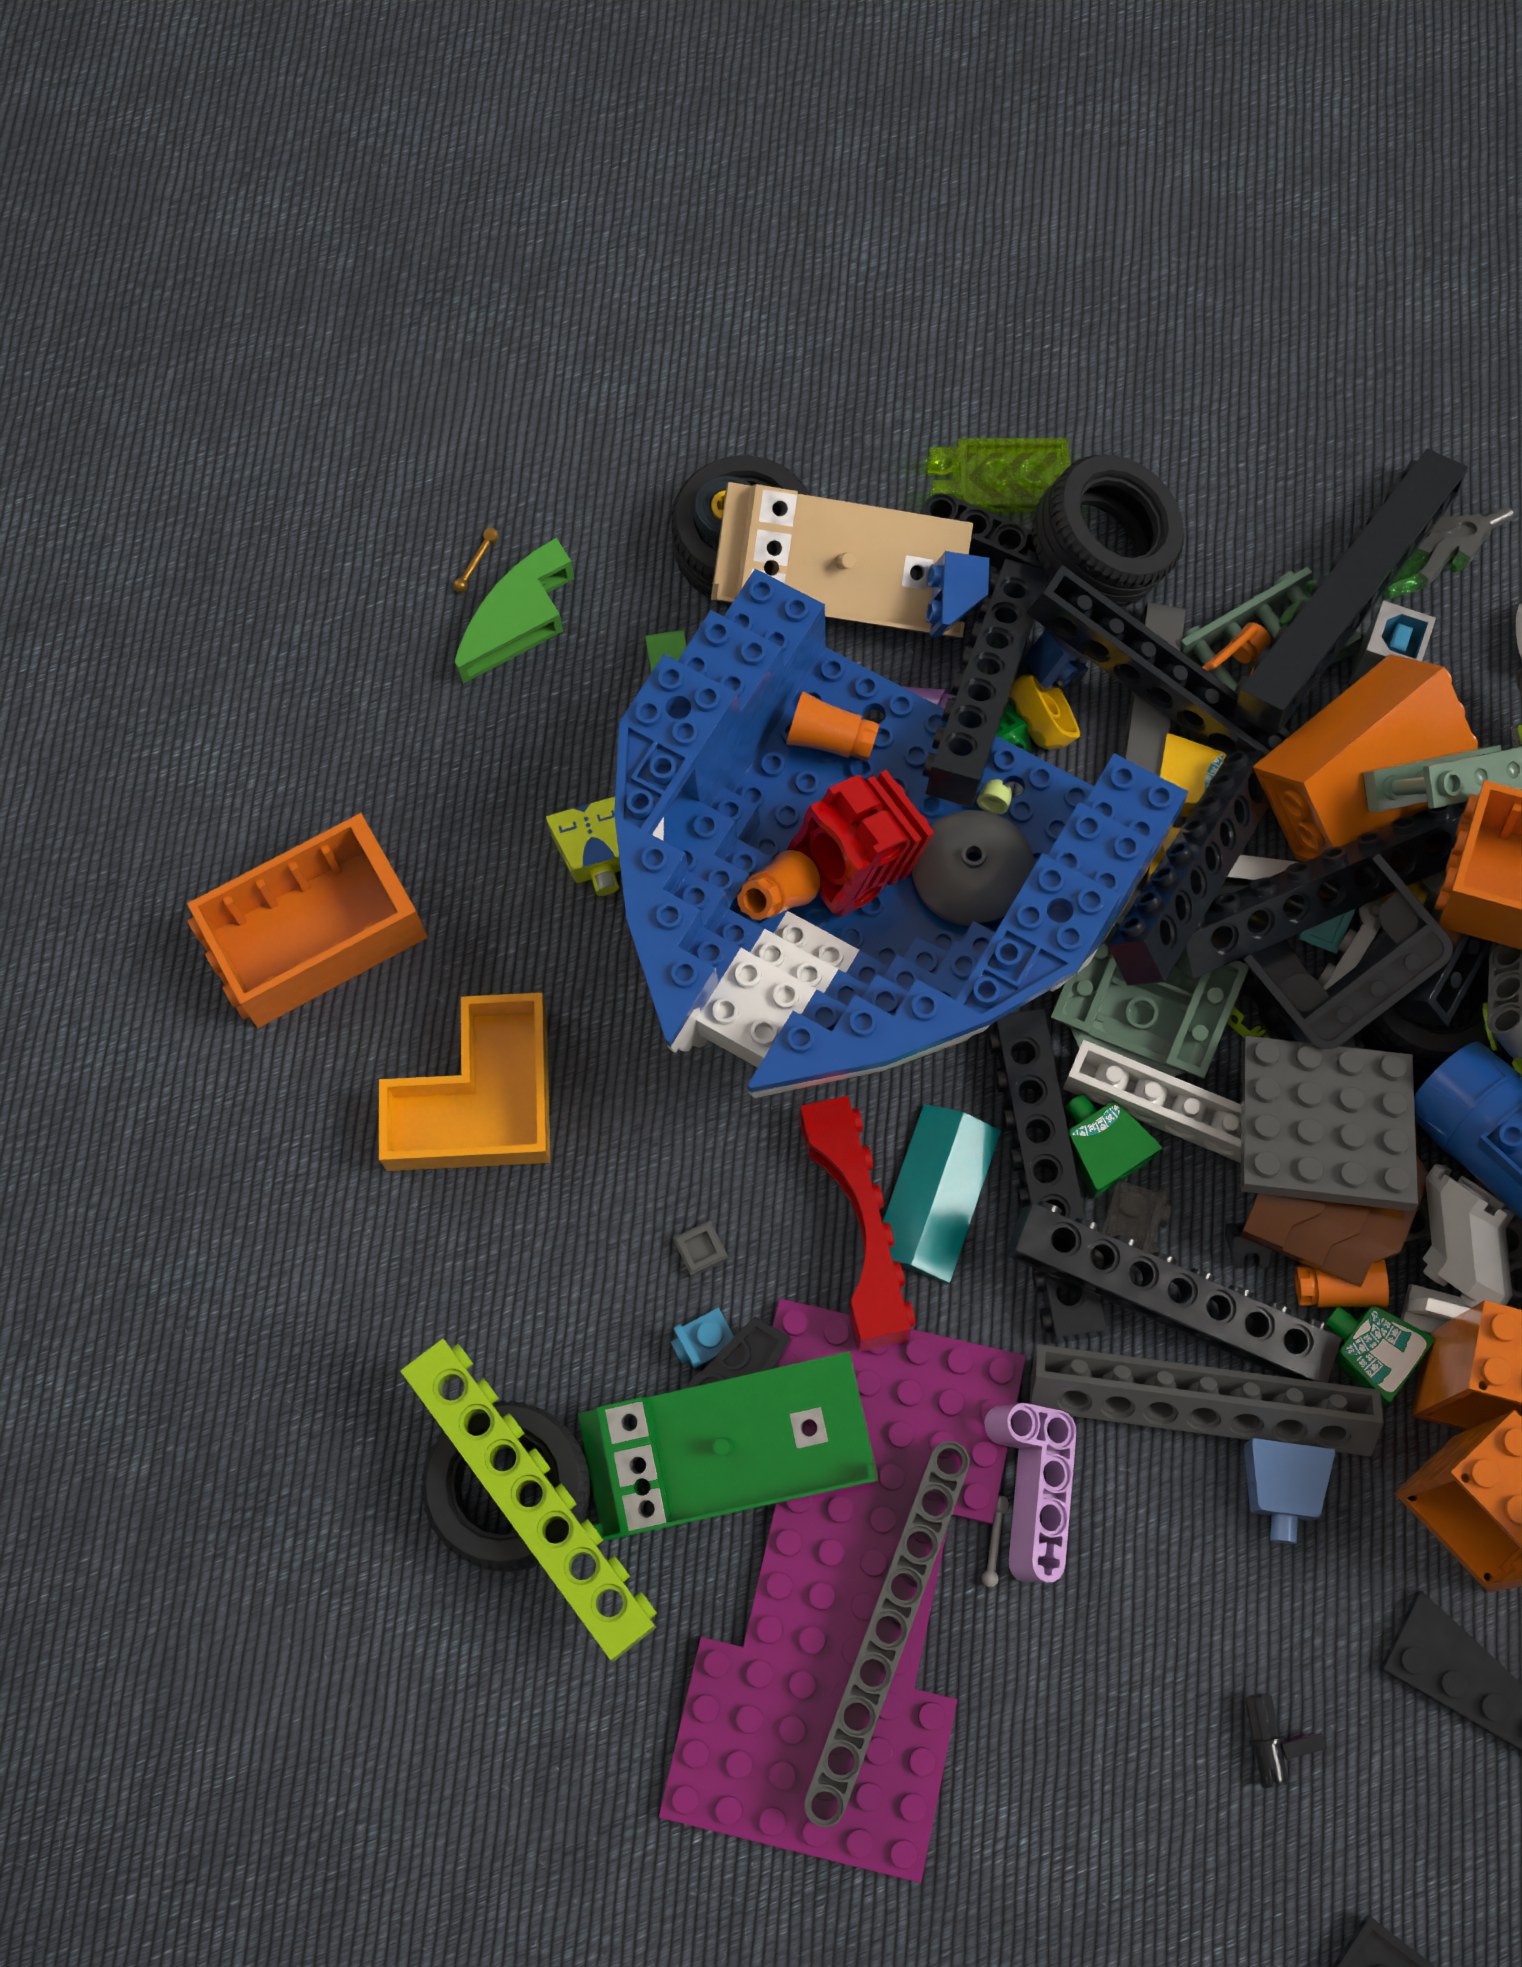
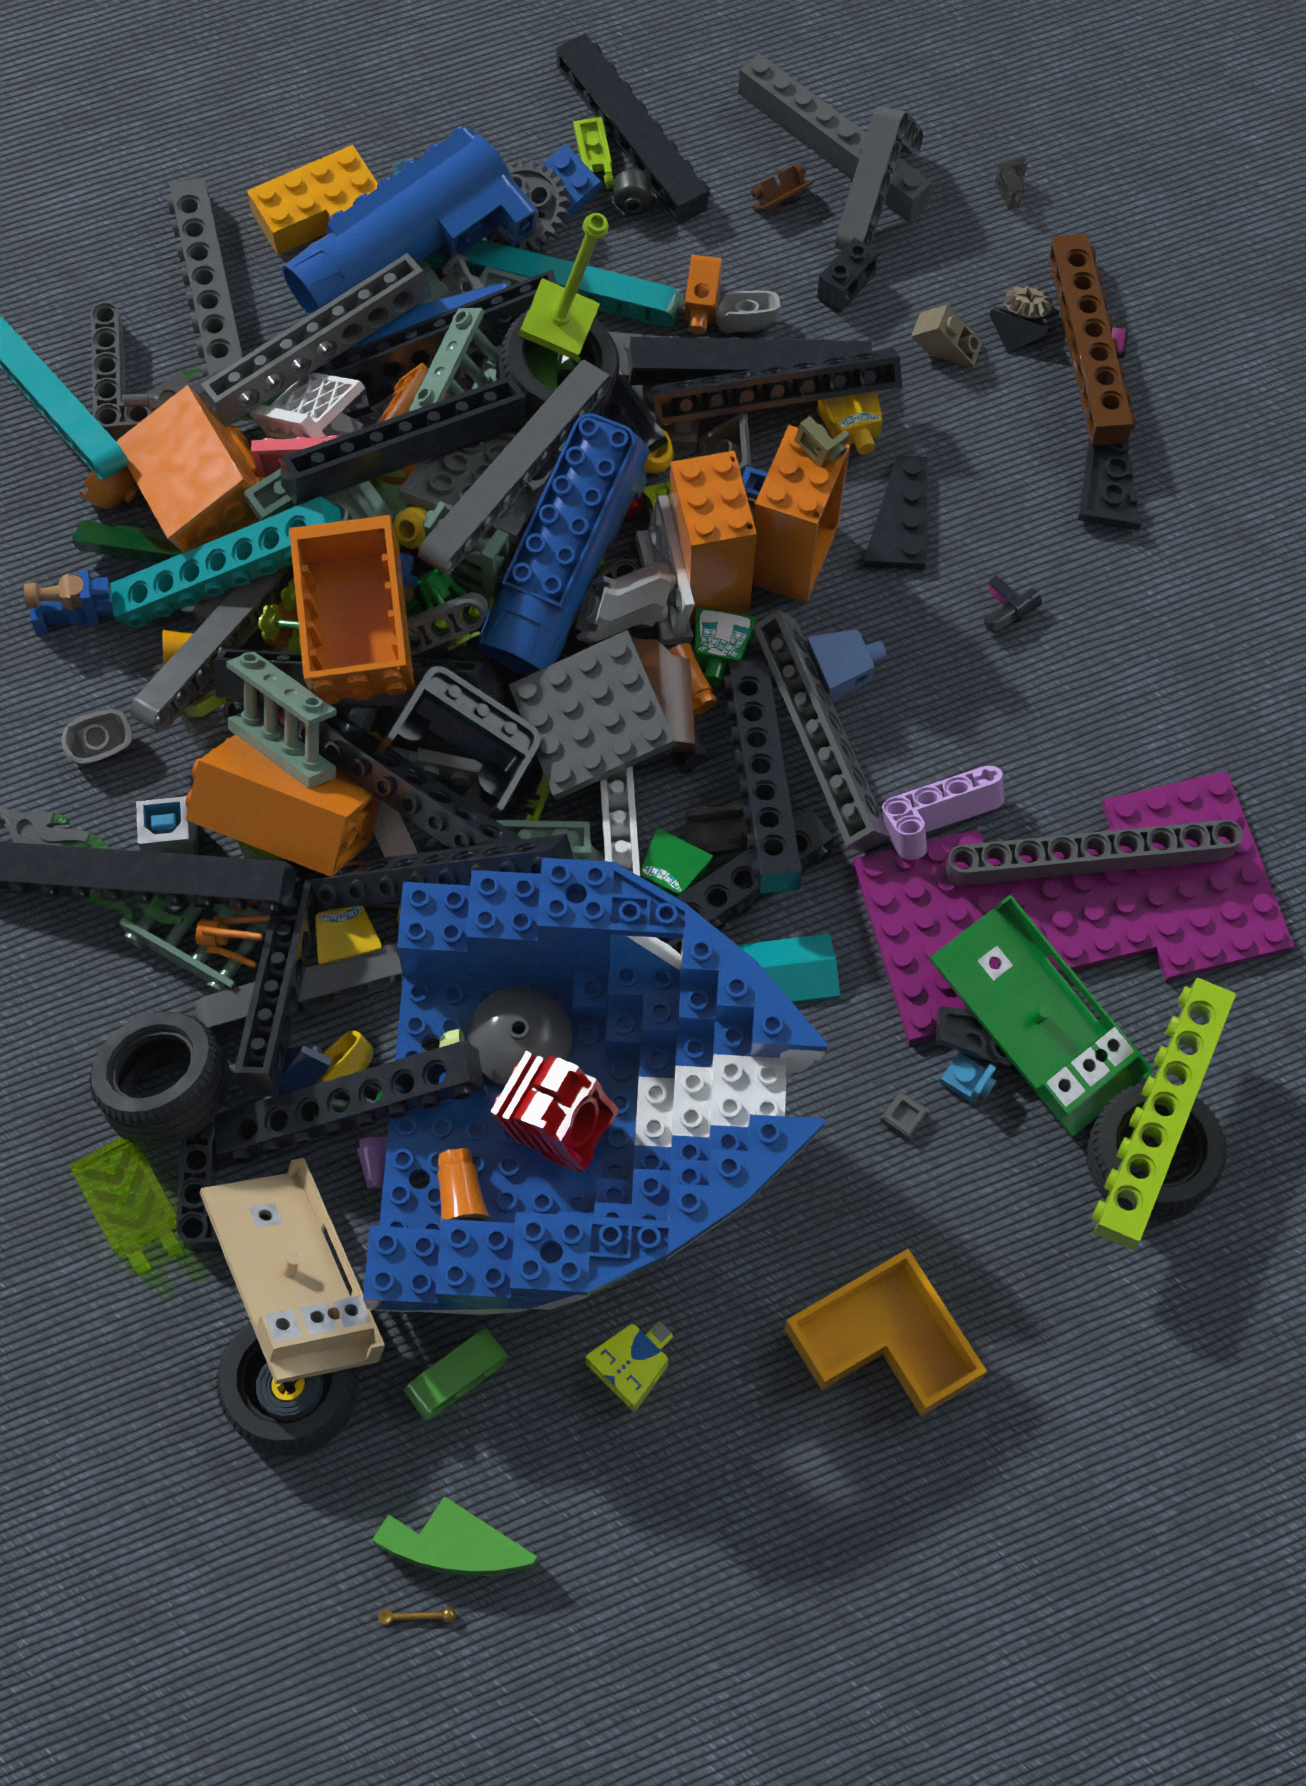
camera: 120 degrees left, 5 degrees down
(305, 922) = (828, 1552): orange container -> none
(783, 884) = (621, 1151): orange plant -> none
(833, 1143) = (878, 964): red arch -> none
(957, 588) = (274, 1170): blue slope -> none
(990, 1577) = (1012, 817): light grey hinge -> none

